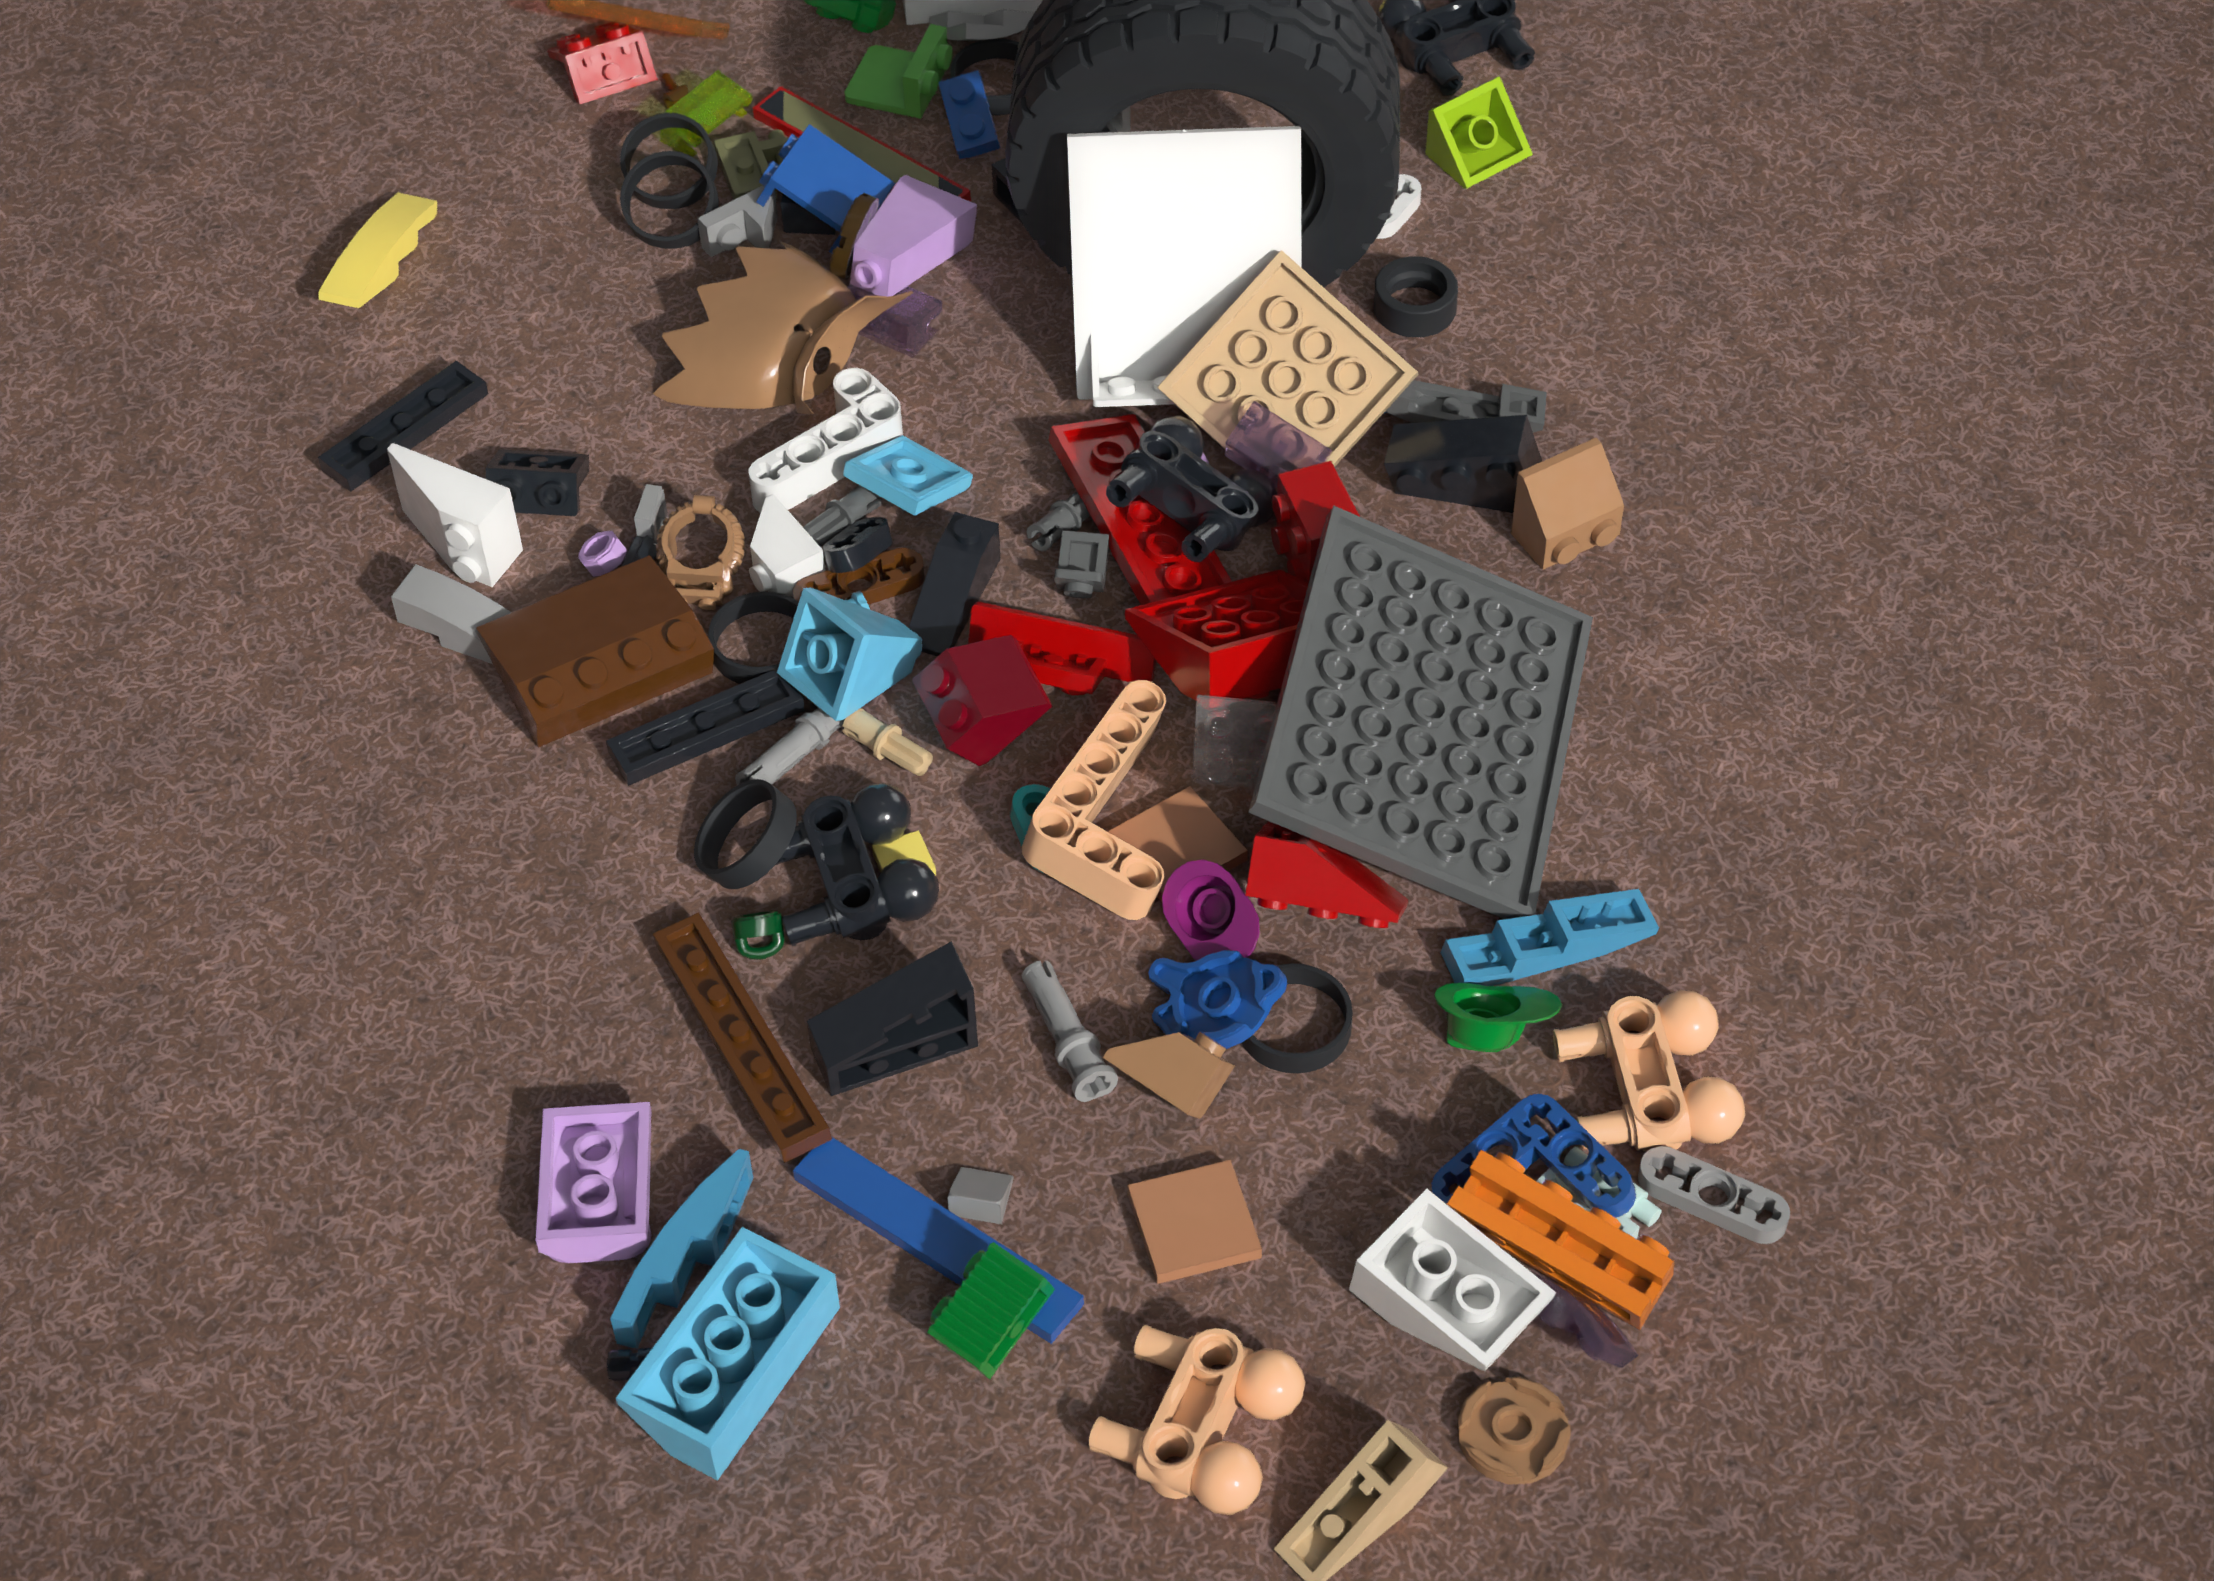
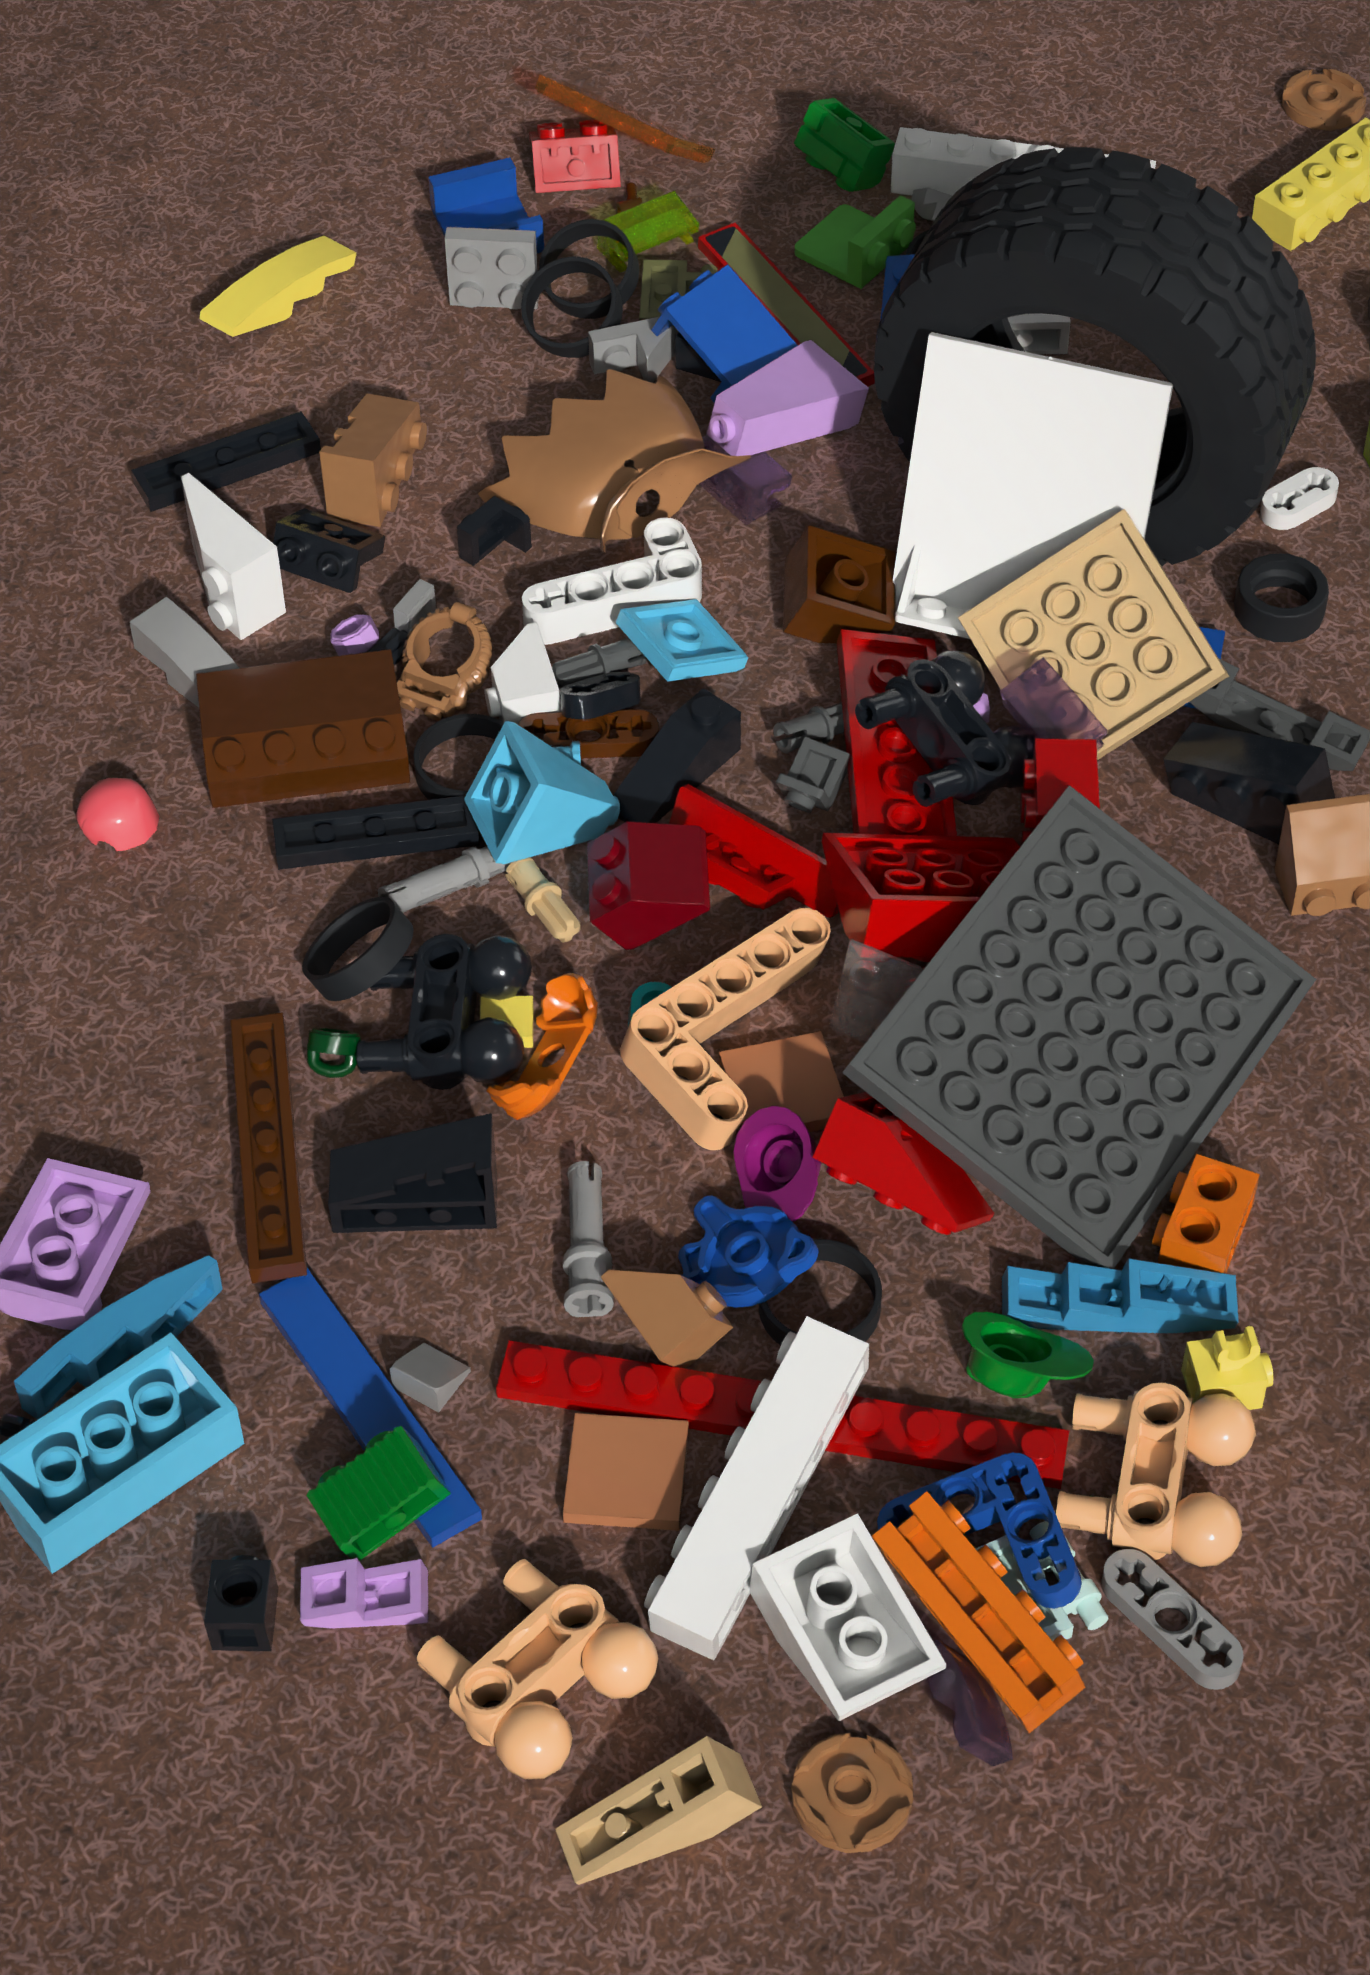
camera: 20 degrees right, 0 degrees up
(452, 777) = (117, 813): none -> coral hair
(542, 138) = (482, 198): none -> blue panel
(547, 387) = (371, 459): none -> medium nougat wedge
(579, 181) = (489, 266): none -> light grey plate
(686, 416) = (489, 527): none -> black bracket
(855, 223) = (728, 371): dark brown tile -> none
(913, 1468) = (245, 1625): none -> black brick
(962, 842) = (568, 1019): none -> orange piece
(1004, 1409) = (350, 1596): none -> lavender slope
(1027, 390) = (837, 586): none -> reddish brown slope
(1293, 1129) = (724, 1402): none -> red plate
(1324, 1196) = (757, 1488): none -> white brick
(1593, 845) = (1211, 1222): none -> orange brick
(1668, 967) = (1228, 1367): none -> light yellow brick

